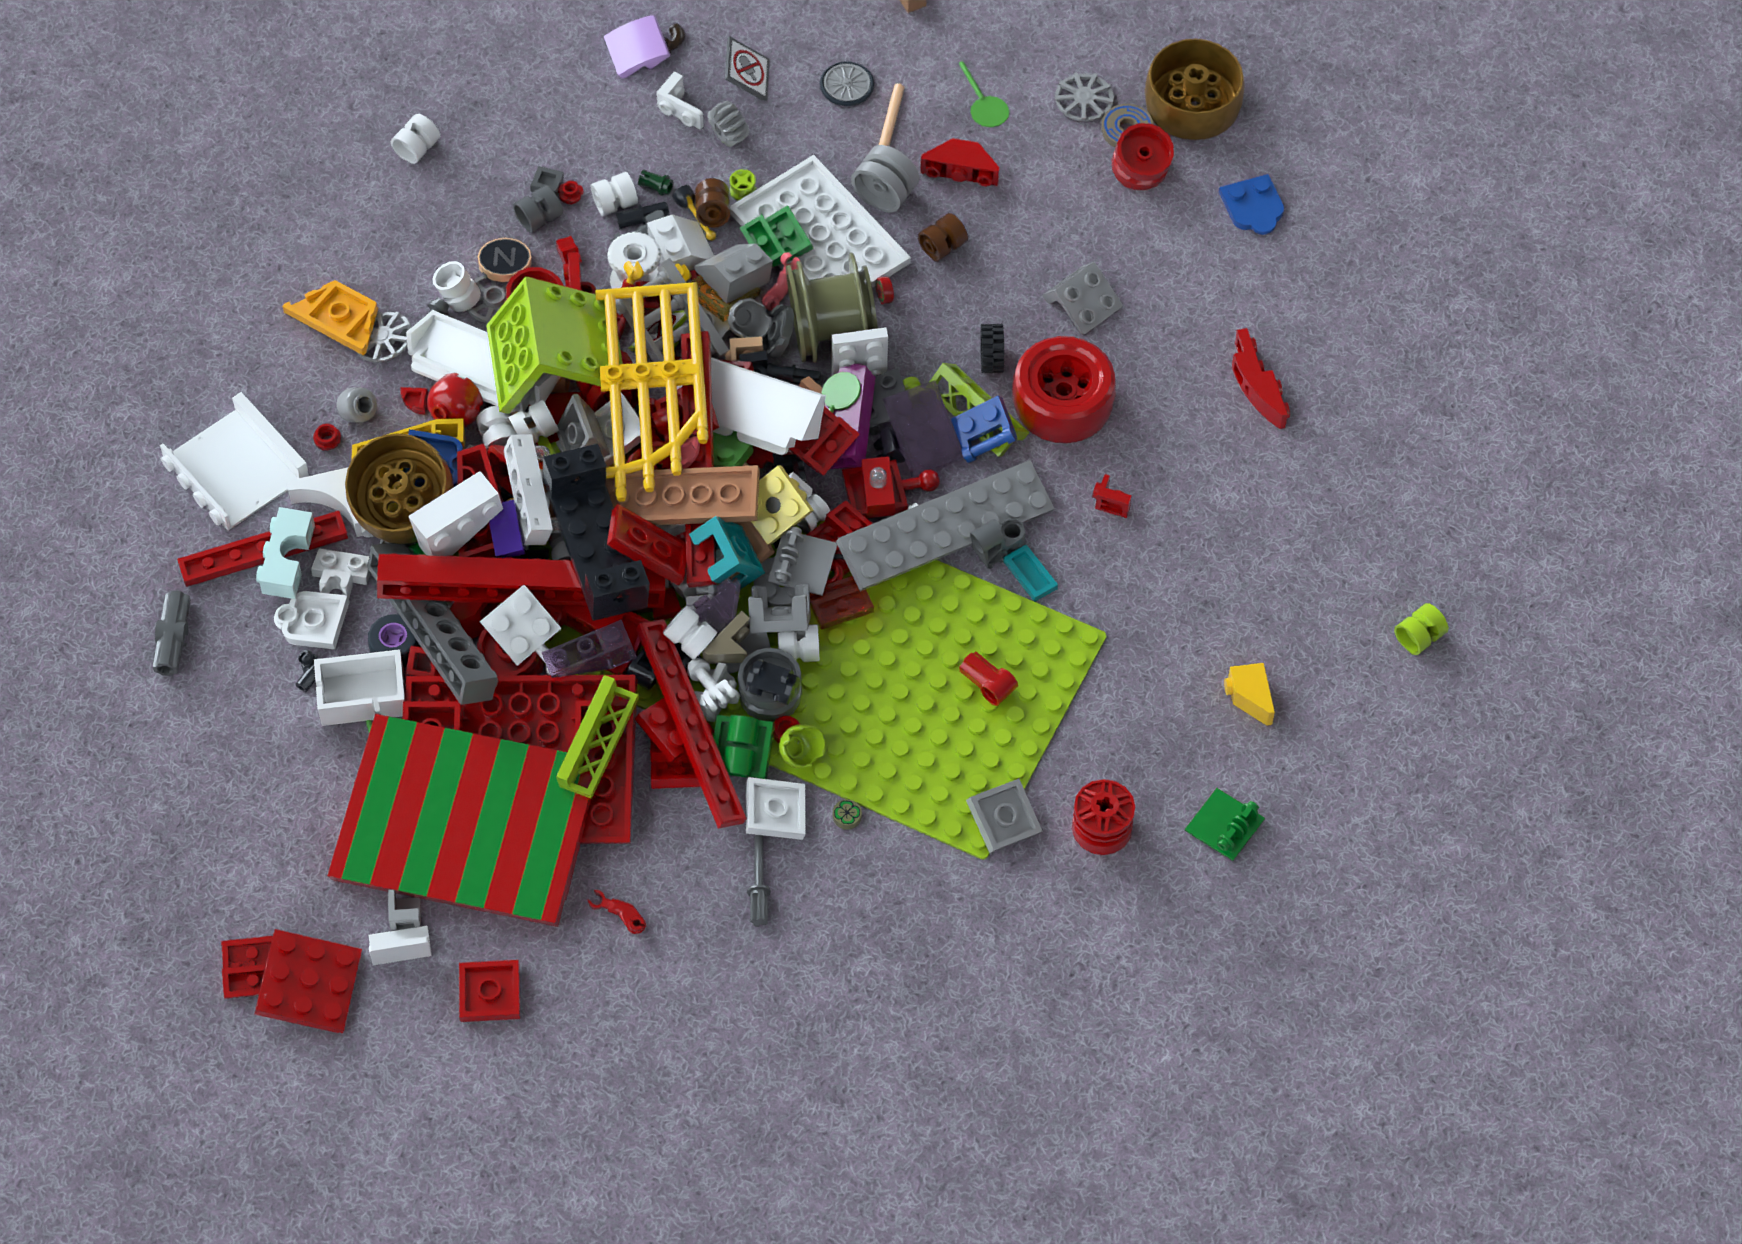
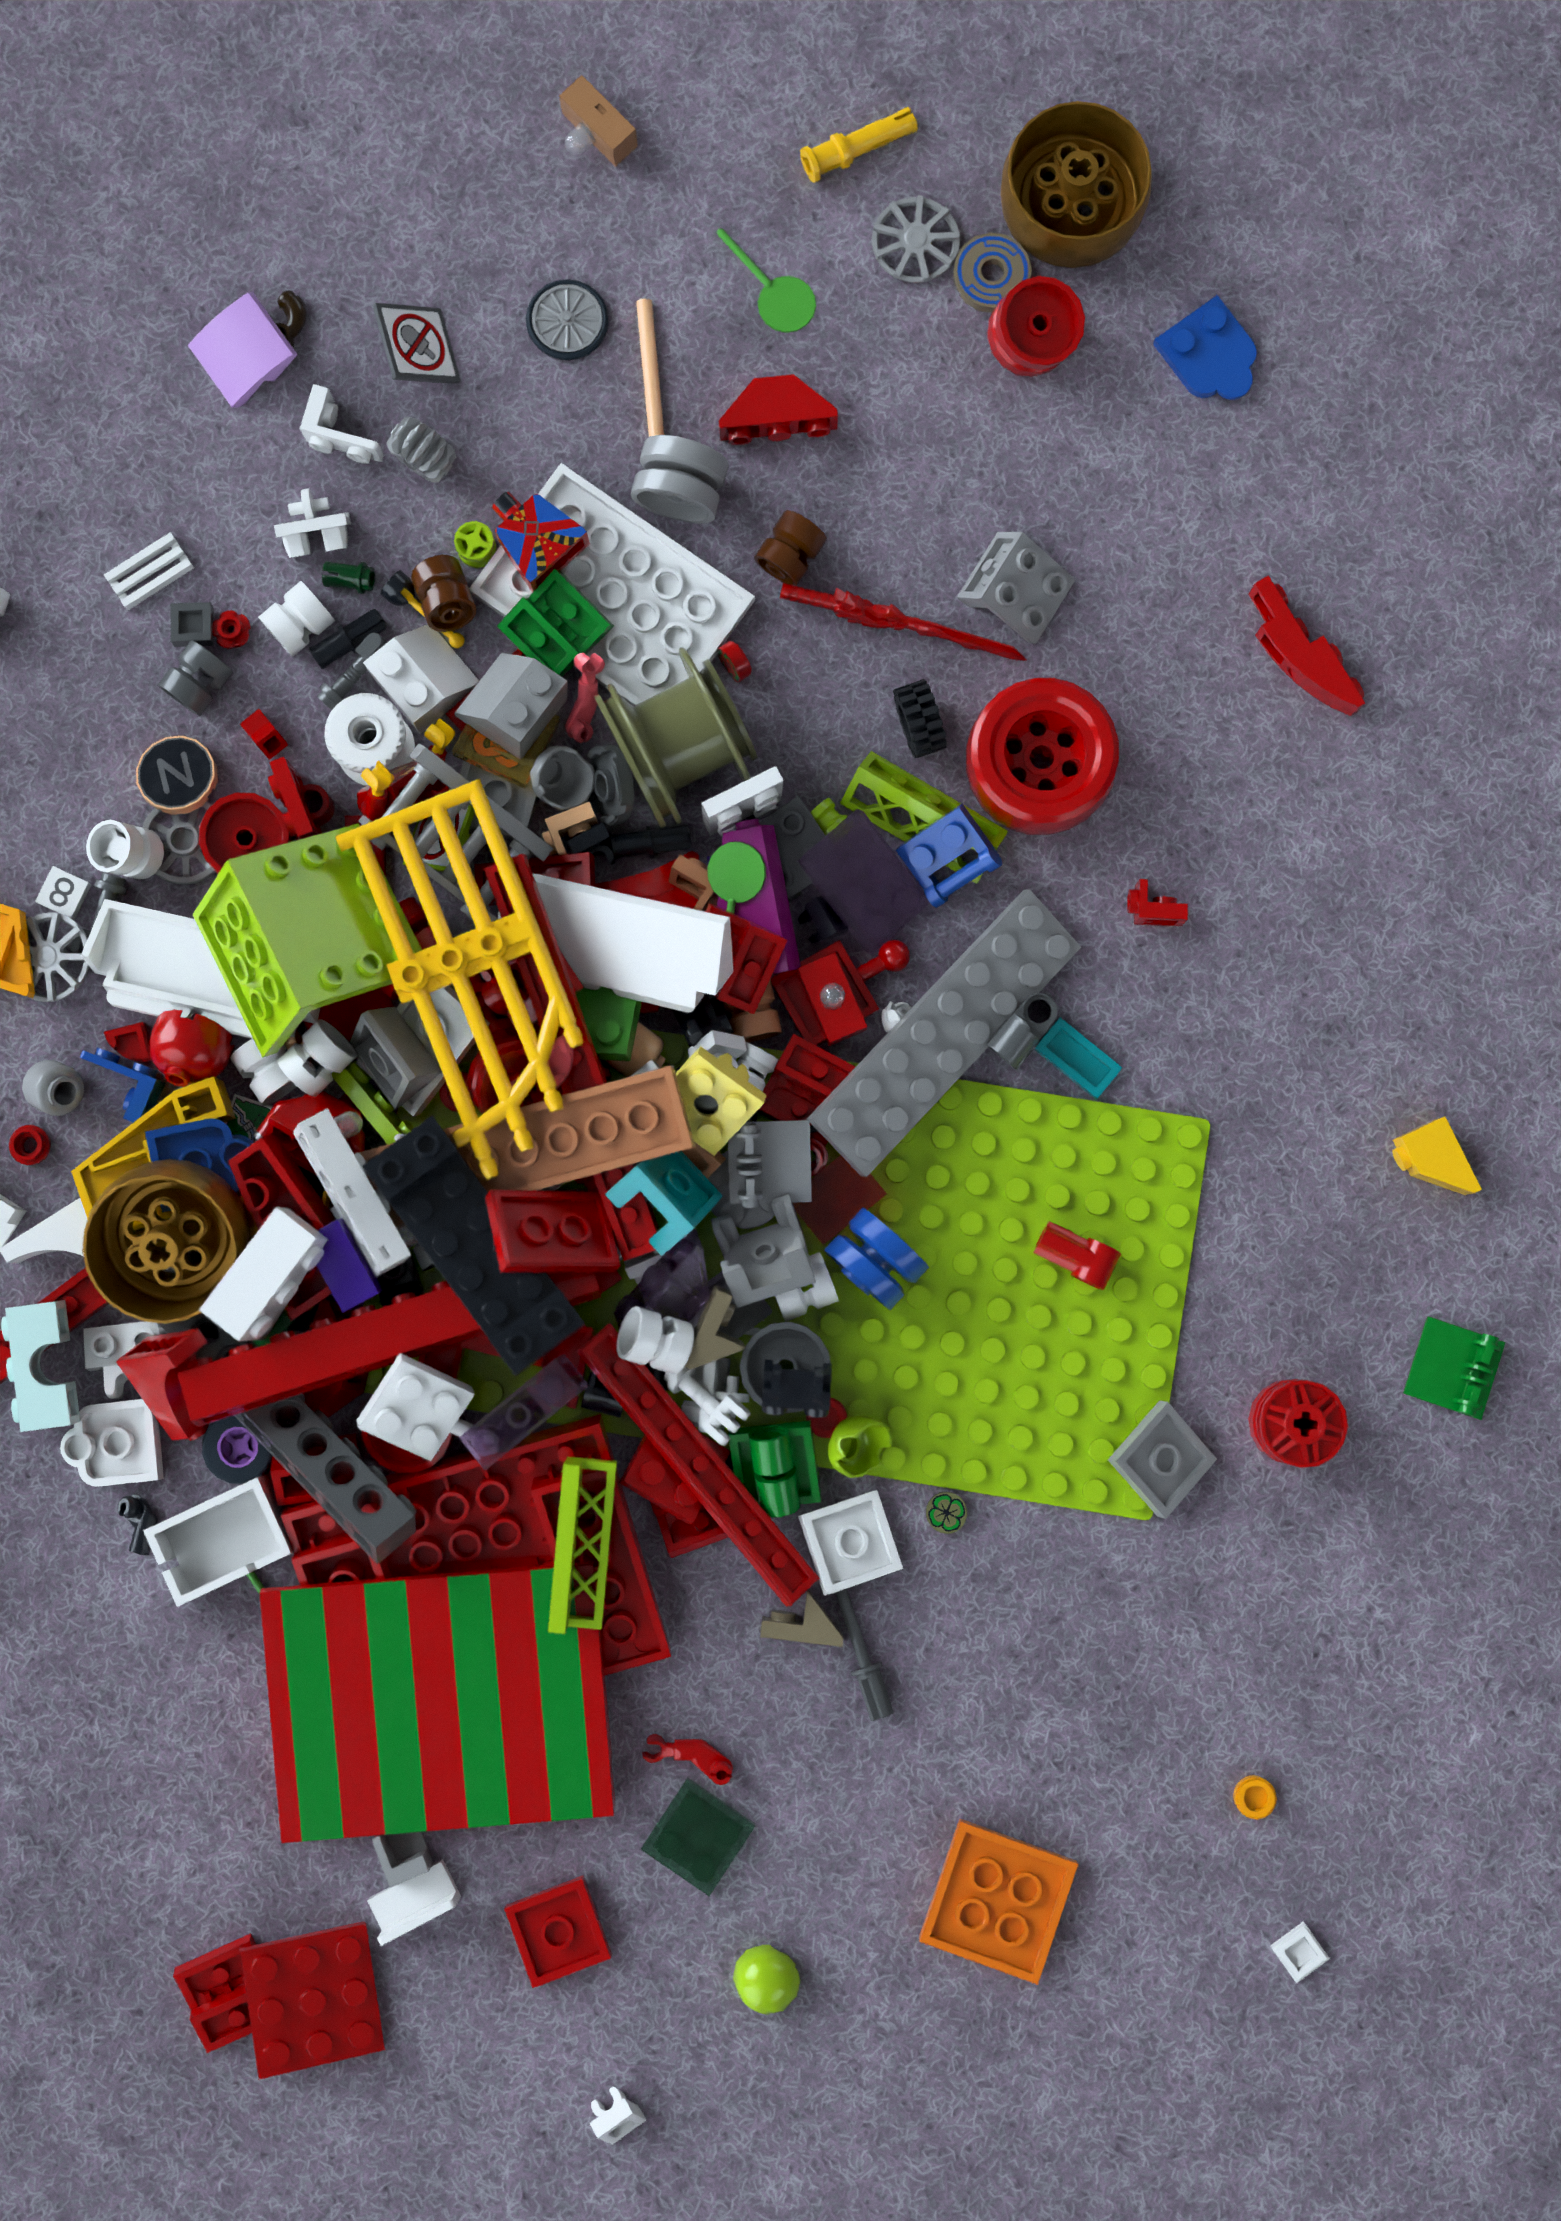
camera: 15 degrees left, 25 degrees up
(359, 578) = (153, 1373): none -> red arch
(407, 304) = (63, 892): none -> white tile
(412, 415) = (138, 1099): none -> blue bracket
(485, 1118) = (618, 2120): none -> white tile
(531, 144) = (141, 558): none -> white tile
(606, 962) = (698, 1836): none -> clear green plate
(620, 1064) = (766, 1979): none -> lime hair
(644, 144) = (295, 533): none -> white hips
(730, 854) = (815, 1627): none -> dark tan slope
(784, 185) = (537, 536): none -> torso
(797, 1059) = (998, 1901): none -> orange plate
(826, 486) = (756, 1026): none -> nougat wheel
(852, 635) = (878, 1256): none -> blue wheel
(993, 291) = (883, 616): none -> red sword
(997, 1155) = (1299, 1952): none -> white tile
(998, 1048) = (1254, 1797): none -> light orange tile
(1052, 37) = (842, 149): none -> yellow pin

